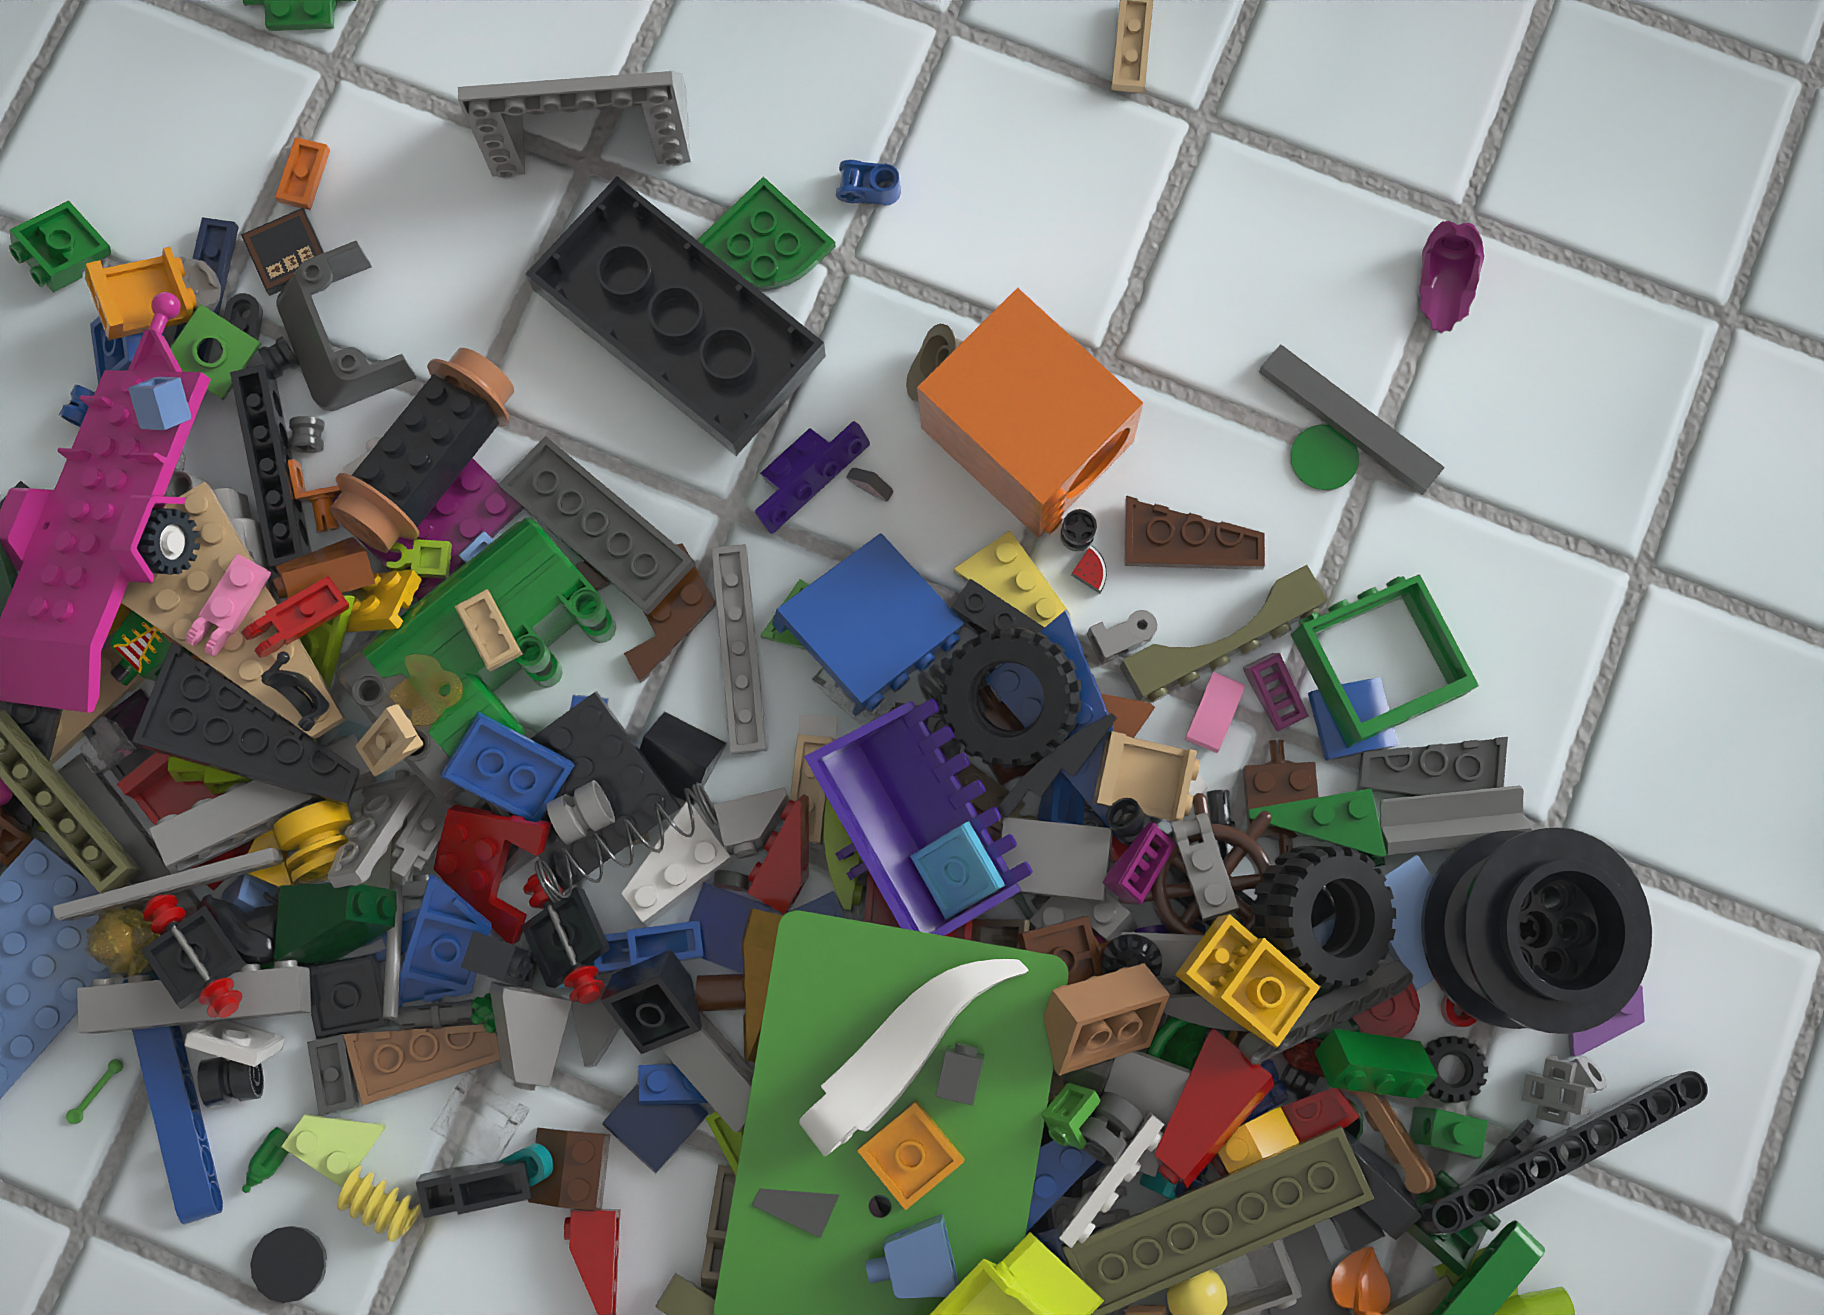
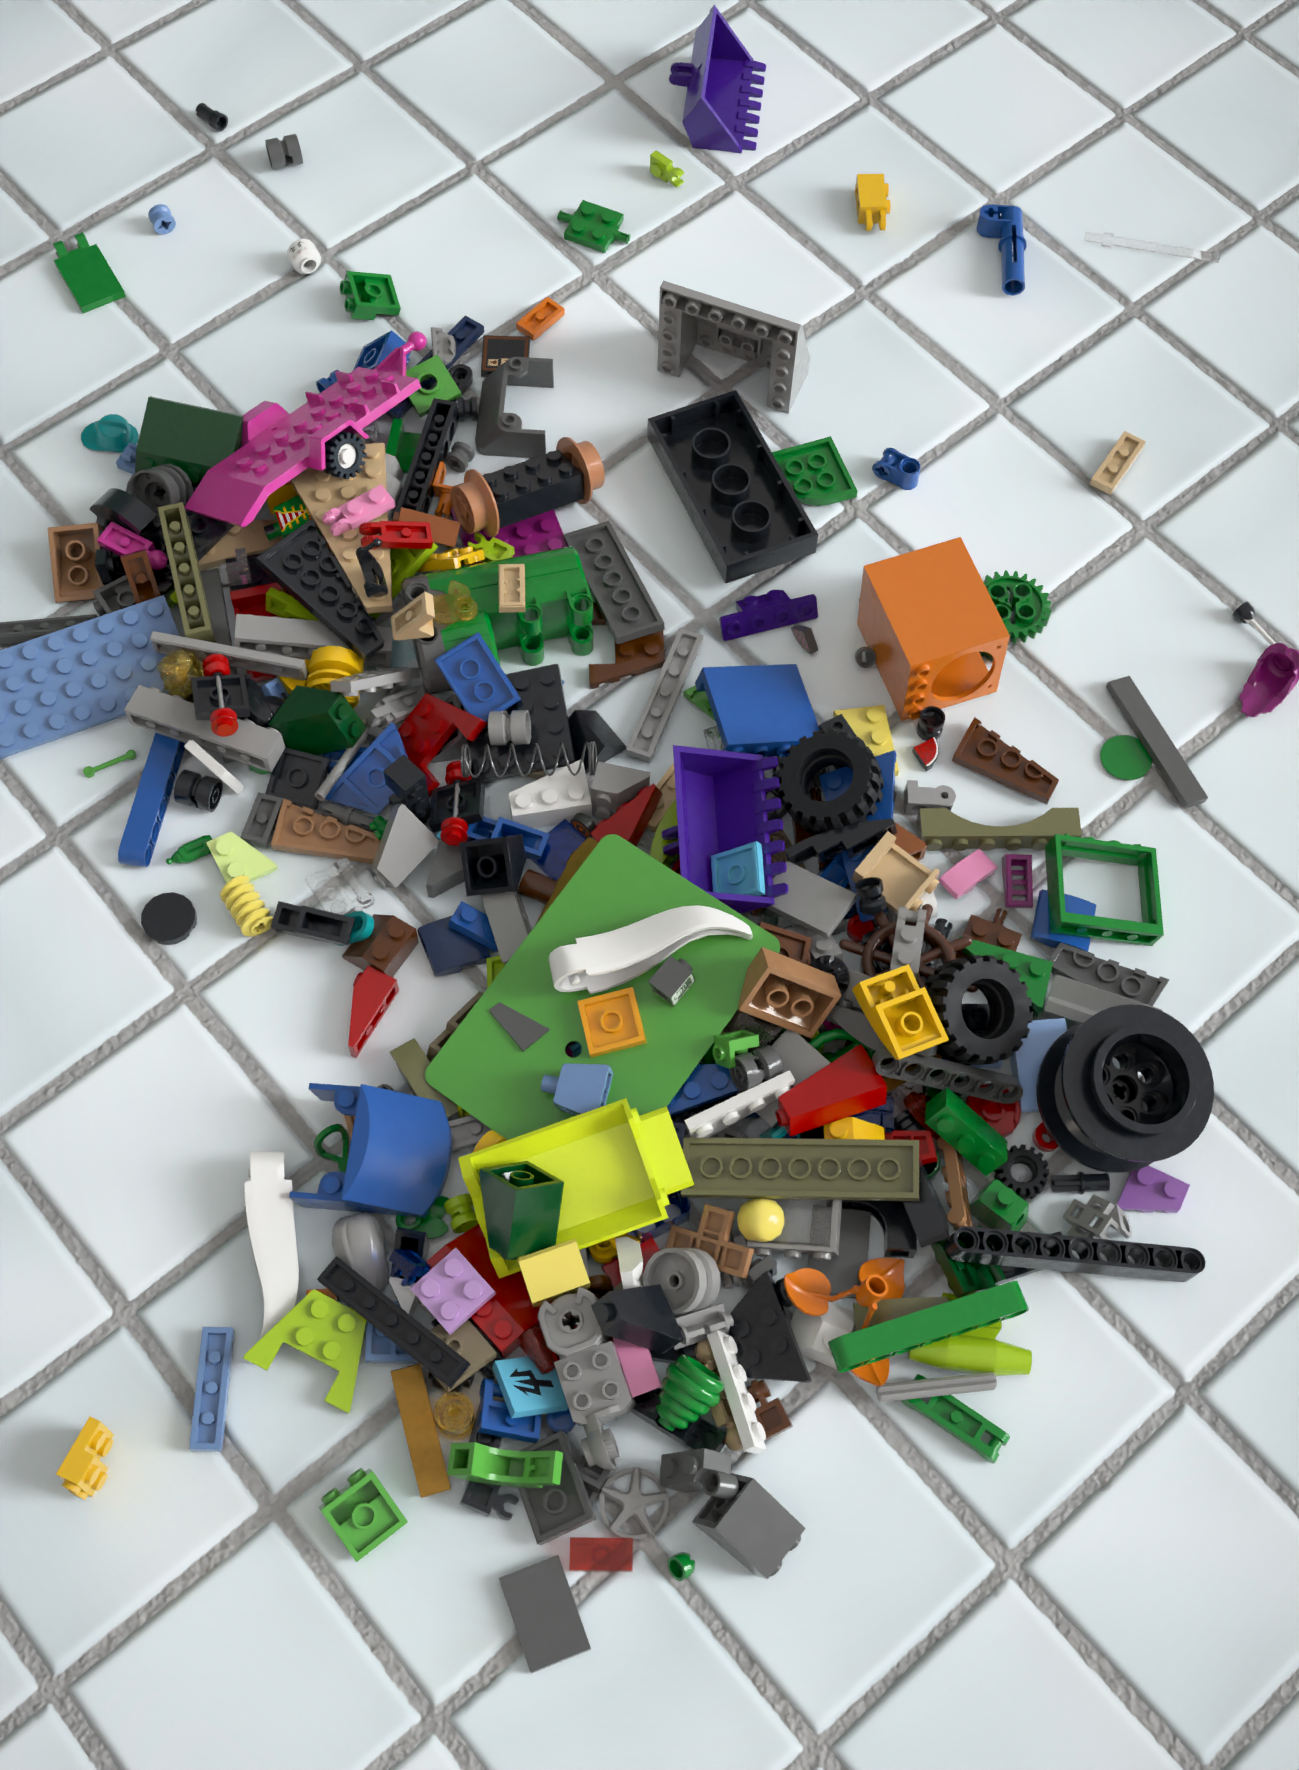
camera: 25 degrees right, 15 degrees down
(126, 292) = (395, 326): light orange panel -> none
(160, 403) = (384, 379): medium blue panel -> none
(223, 455) = (402, 444): none -> green panel
(961, 471) = (870, 657): none -> dark grey hinge
(1123, 304) = (1024, 601): none -> green gear
(1124, 868) = (847, 926): magenta slope -> none
(1380, 189) = (1245, 614): none -> black hinge
(1517, 1048) = (1080, 1183): none -> black axle

